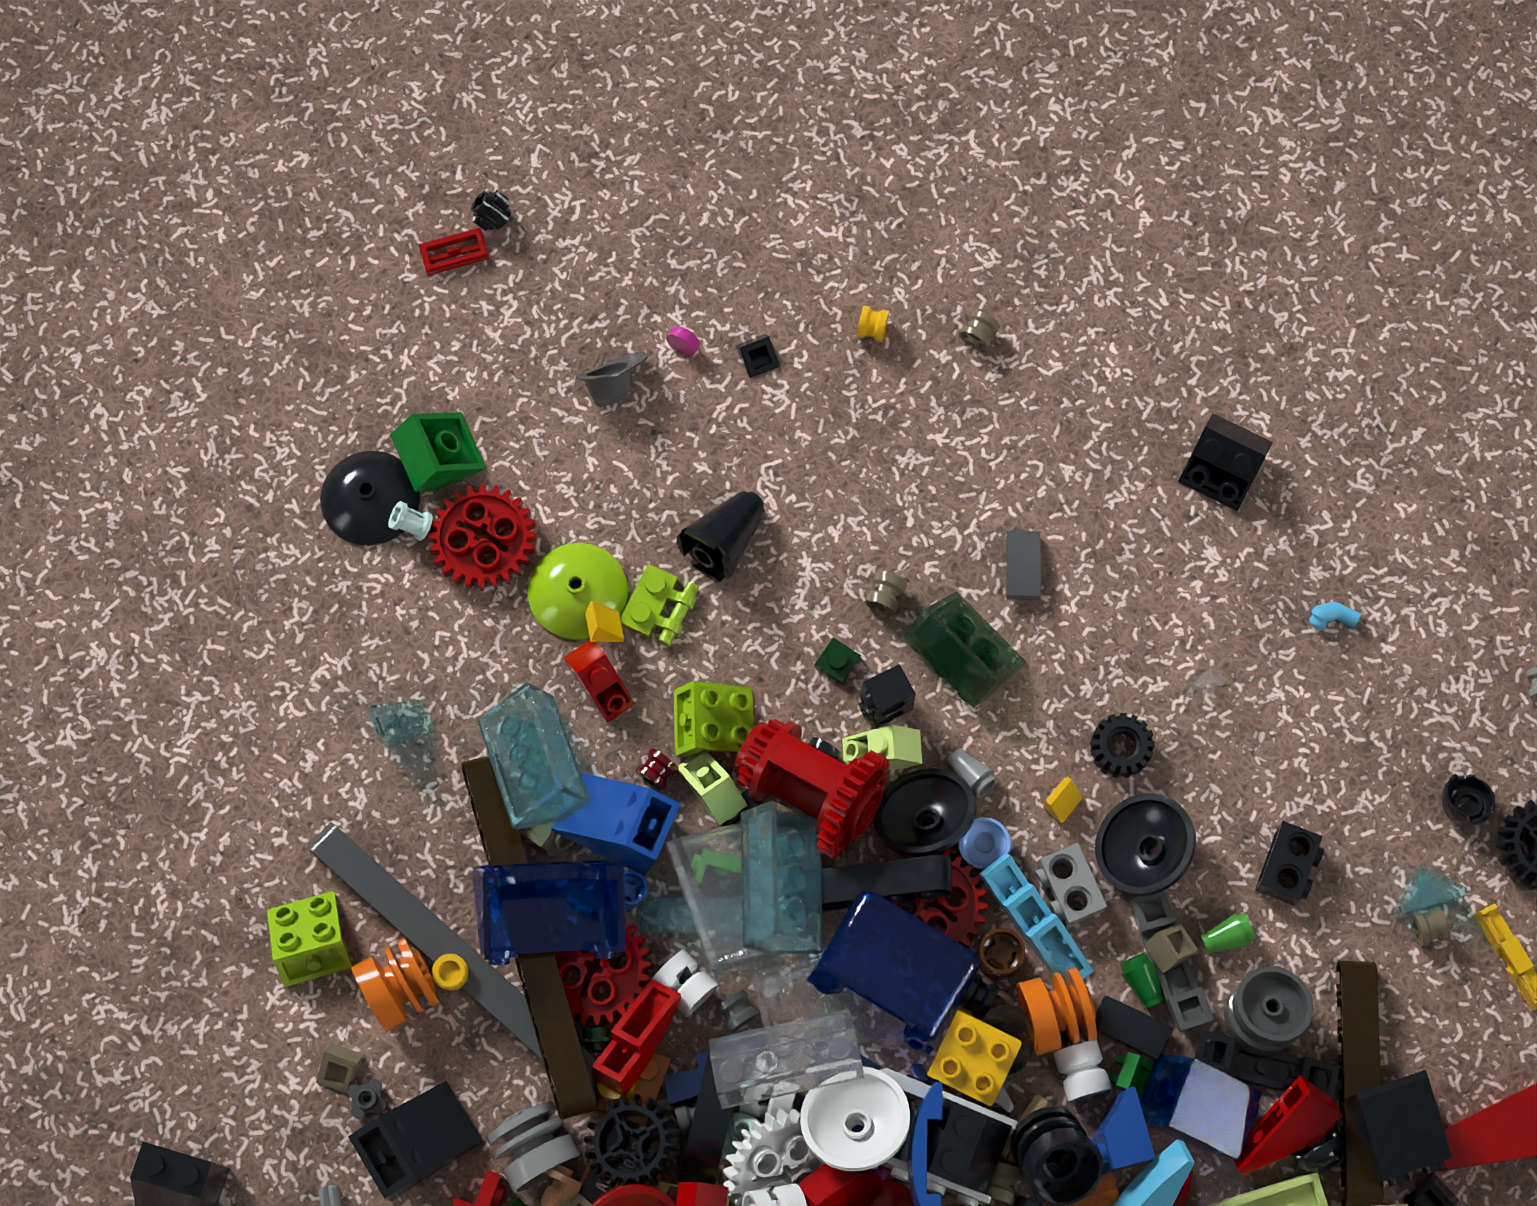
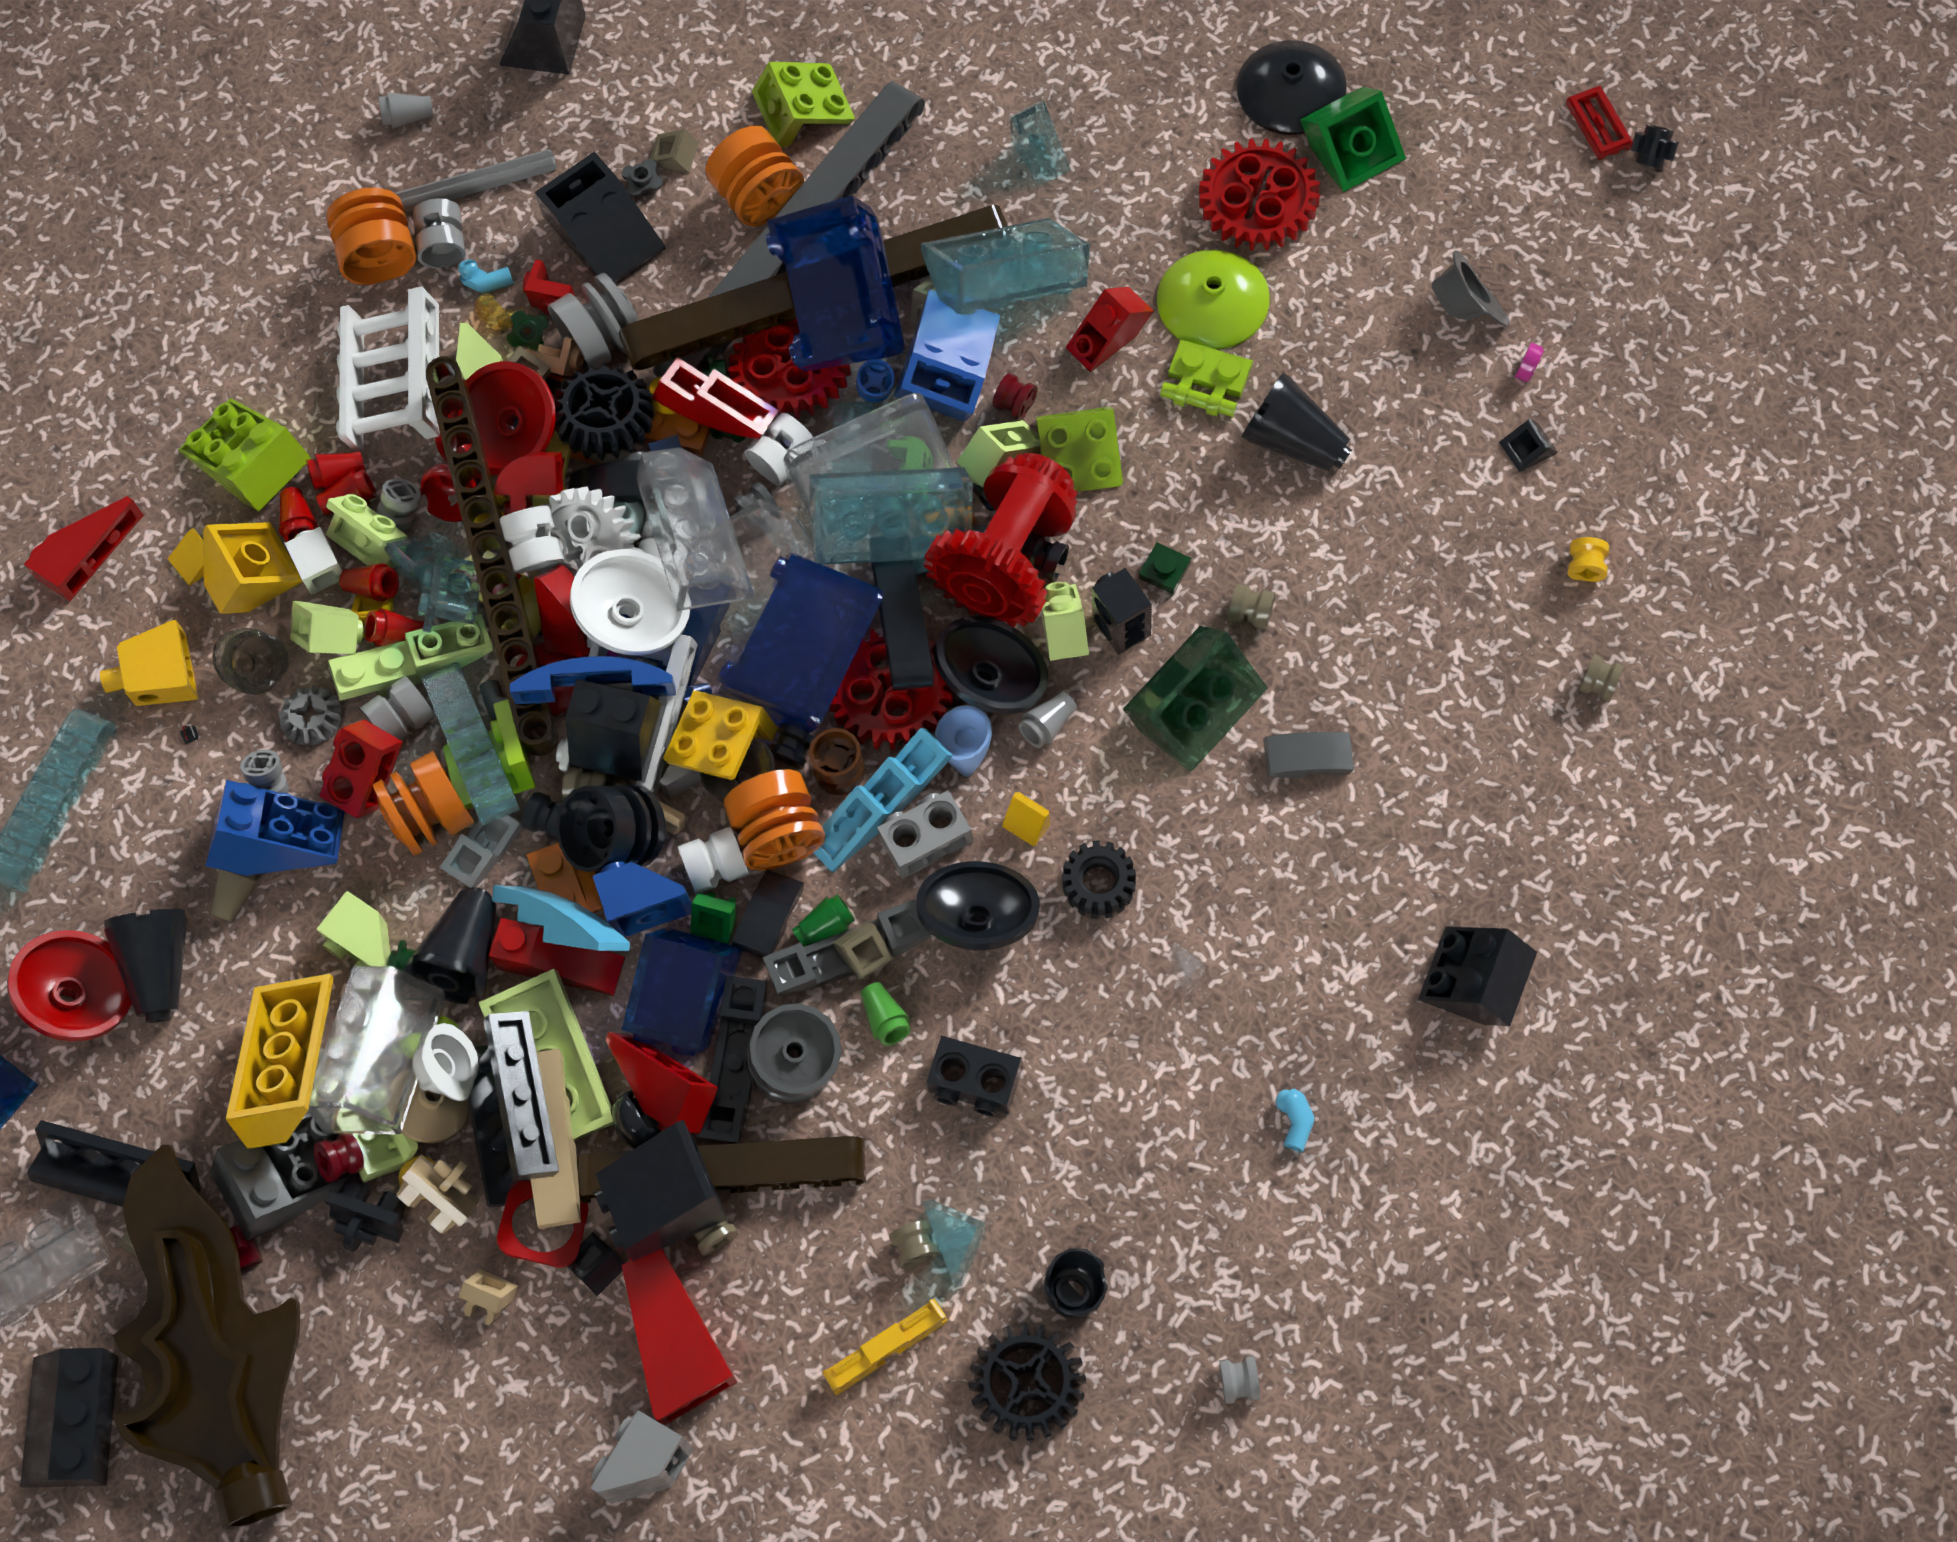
camera: 90 degrees right, 5 degrees down
(410, 520) = (1265, 120): light aqua bush -> none
(450, 972) = (764, 213): yellow tile -> none
(603, 623) = (1171, 318): yellow slope -> none

